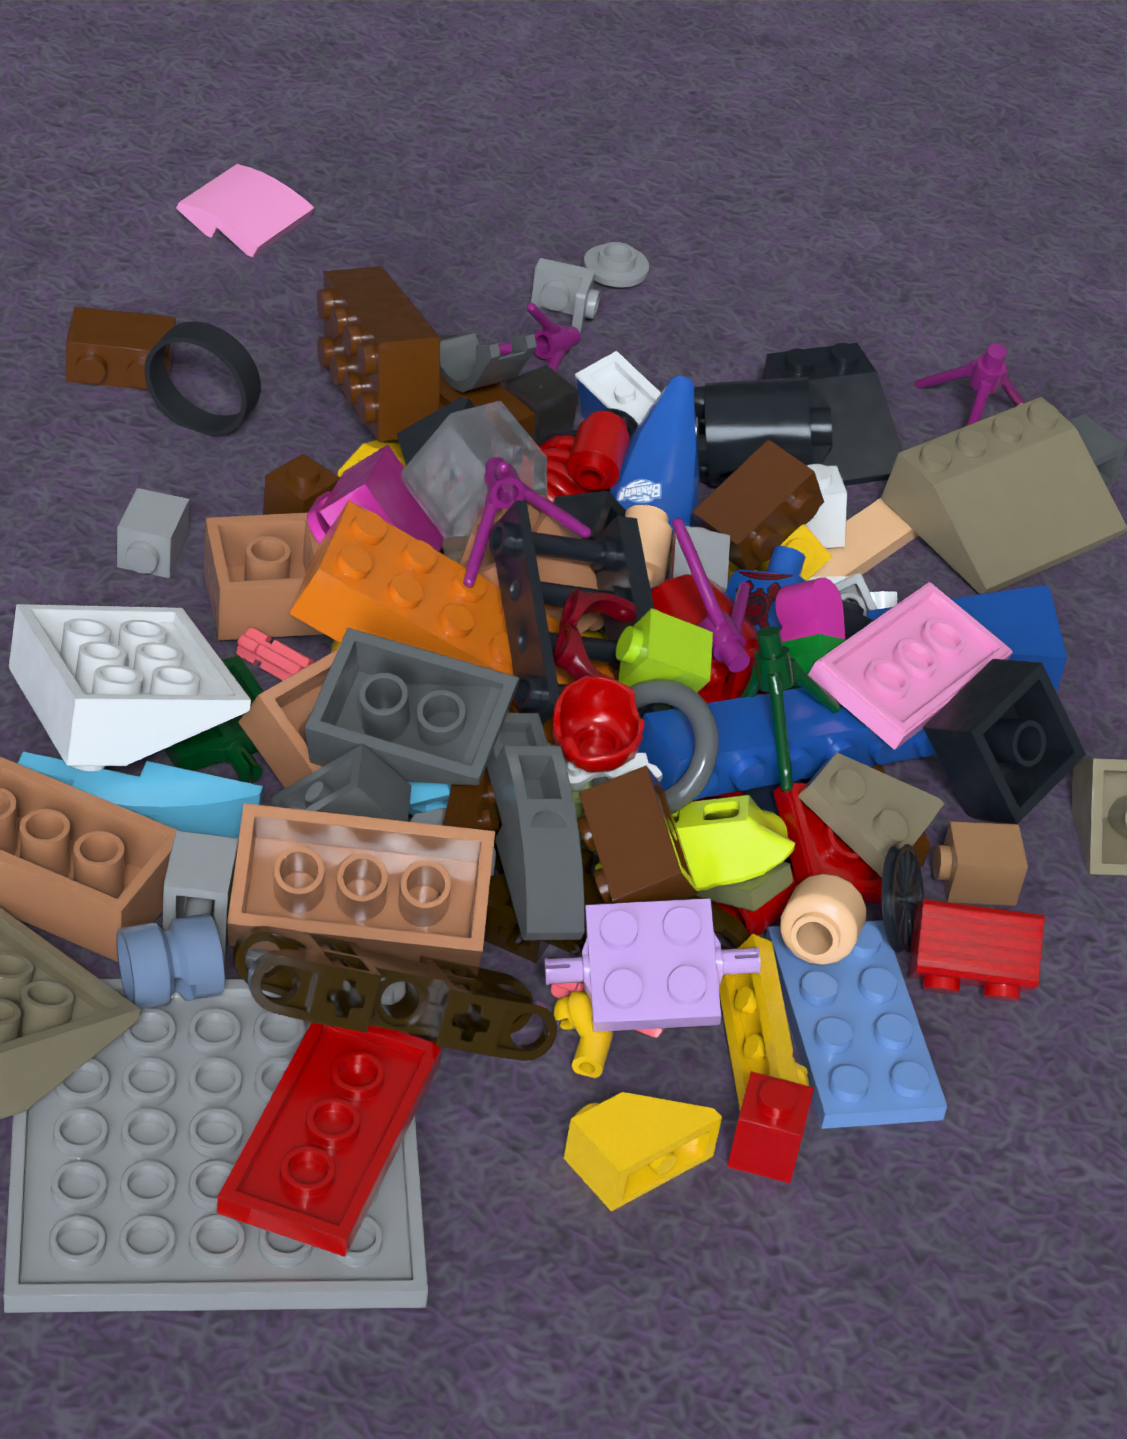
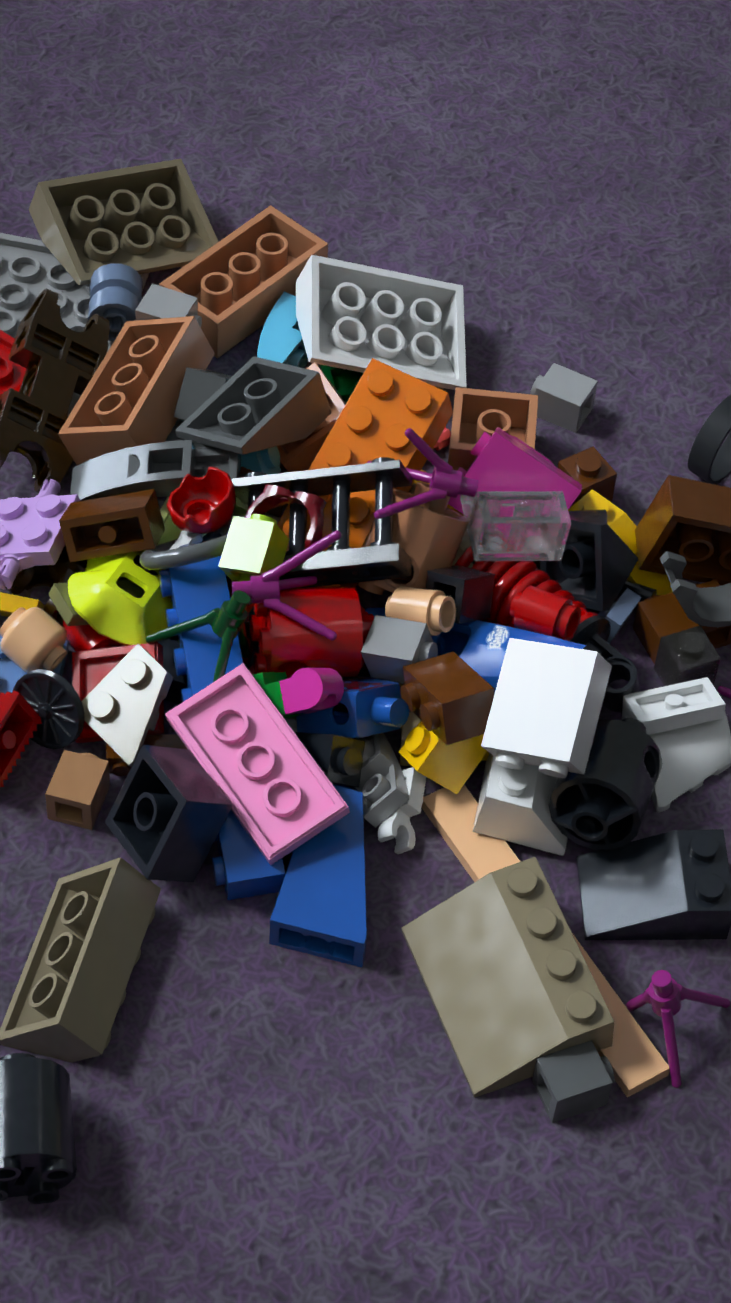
camera: 110 degrees right, 10 degrees up
(757, 395) = (546, 707): none -> white brick

